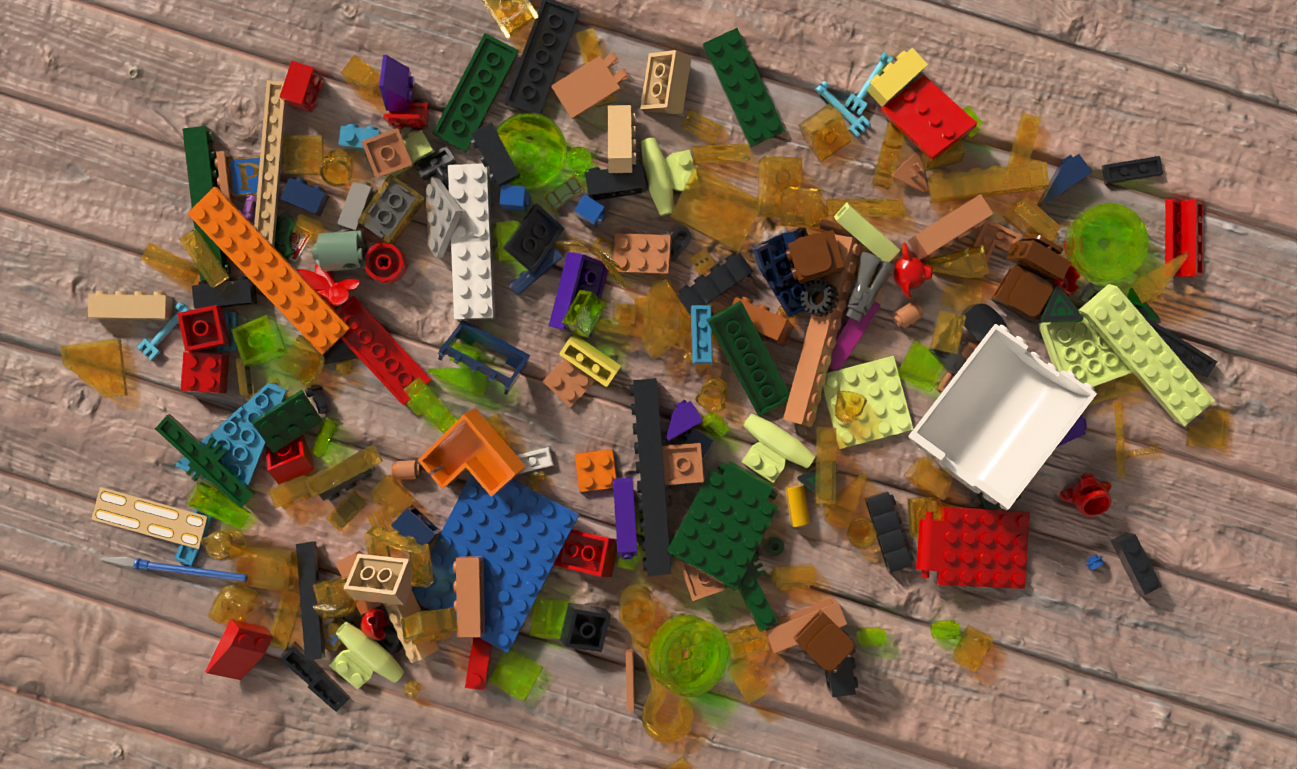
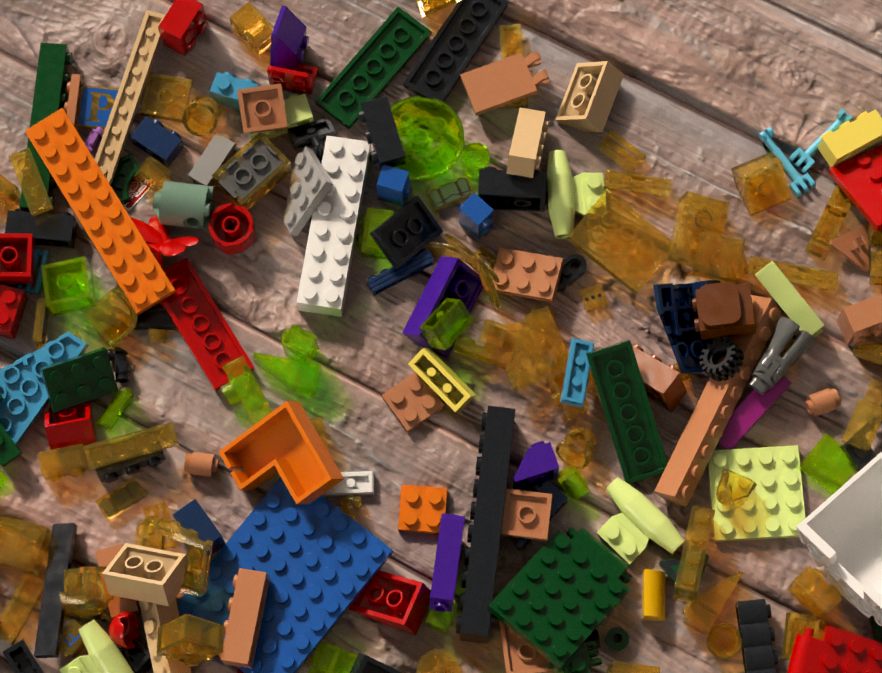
camera: 15 degrees right, 15 degrees down
(392, 496) = (178, 488): clear yellow brick -> none
(469, 333) = (357, 363): dark blue hinge -> none
(717, 282) = (607, 322): black brick -> none
(743, 87) = (677, 119): dark green plate -> none
(910, 272) = (833, 353): red piece -> none

